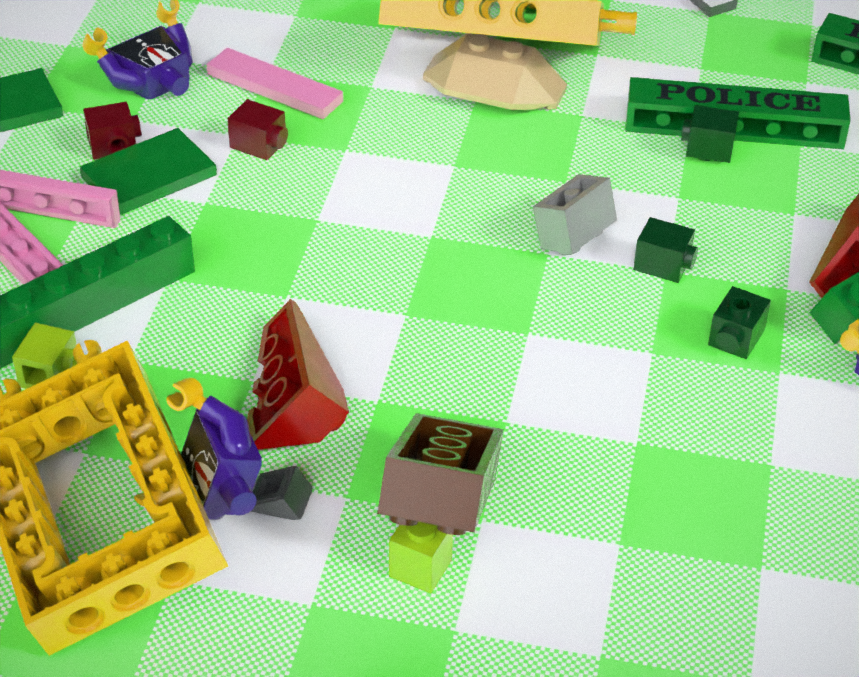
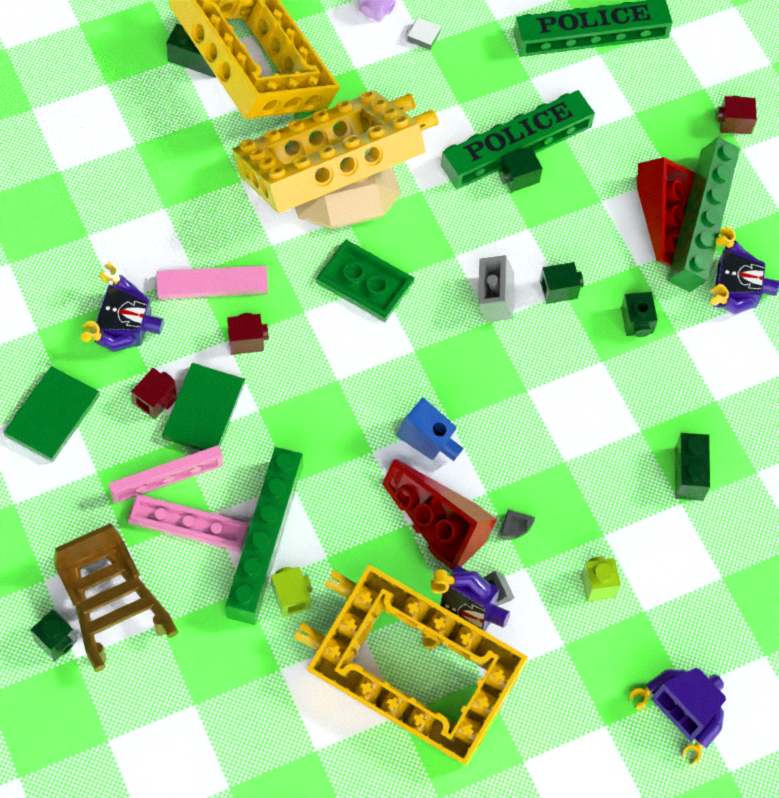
camera: 40 degrees left, 20 degrees up
(360, 308) = (429, 432): none -> blue torso
(371, 445) = (516, 525): none -> dark grey tile
(438, 153) = (365, 280): none -> green tile
(440, 473) = (591, 531): brick -> none
(664, 501) = (692, 466): none -> dark green brick

